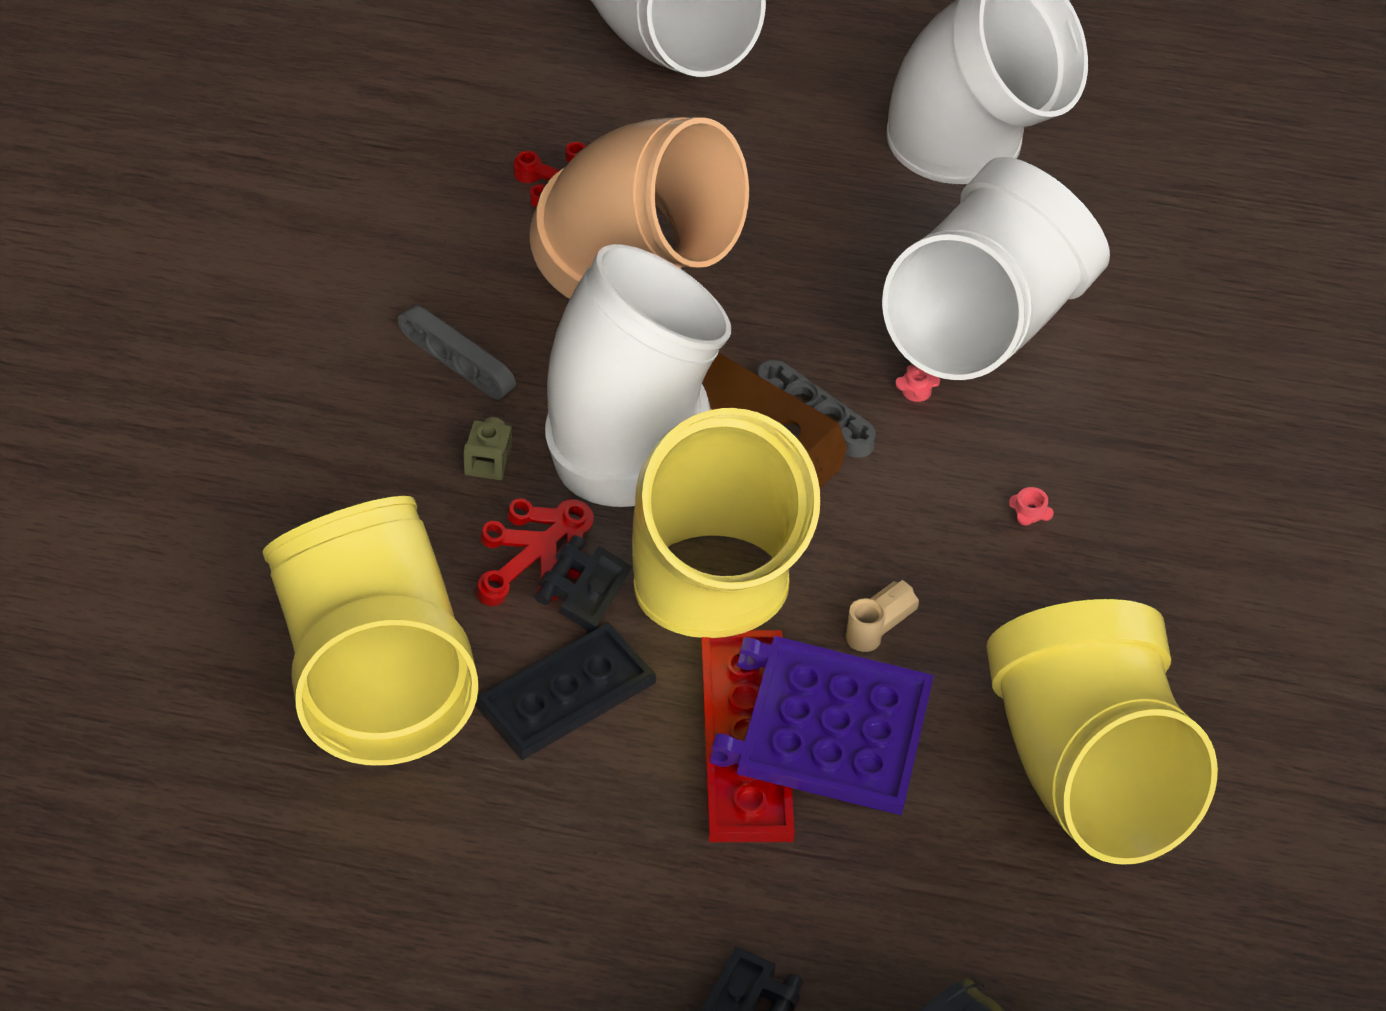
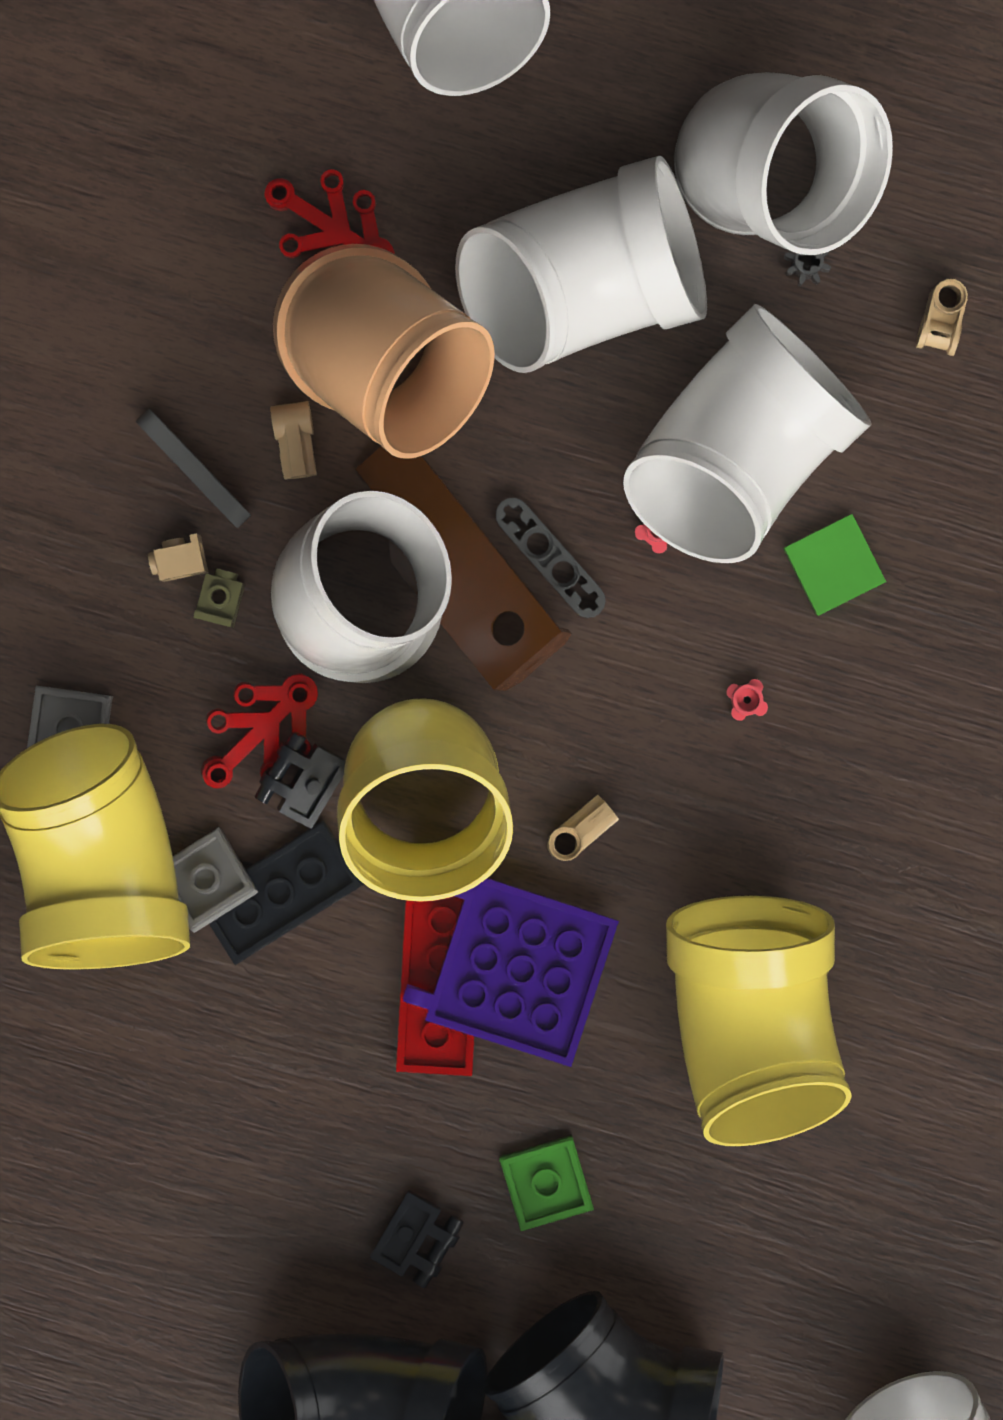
camera: 10 degrees right, 40 degrees up
(445, 418) = (178, 559): none -> tan brick
(501, 672) = (211, 879): none -> light grey tile
(545, 319) = (293, 430): none -> tan piece
(830, 163) = (584, 267): none -> white cylinder
(891, 942) = (546, 1183): none -> bright green tile
(1095, 403) = (834, 565): none -> bright green tile
(1156, 217) = (943, 320): none -> tan piece

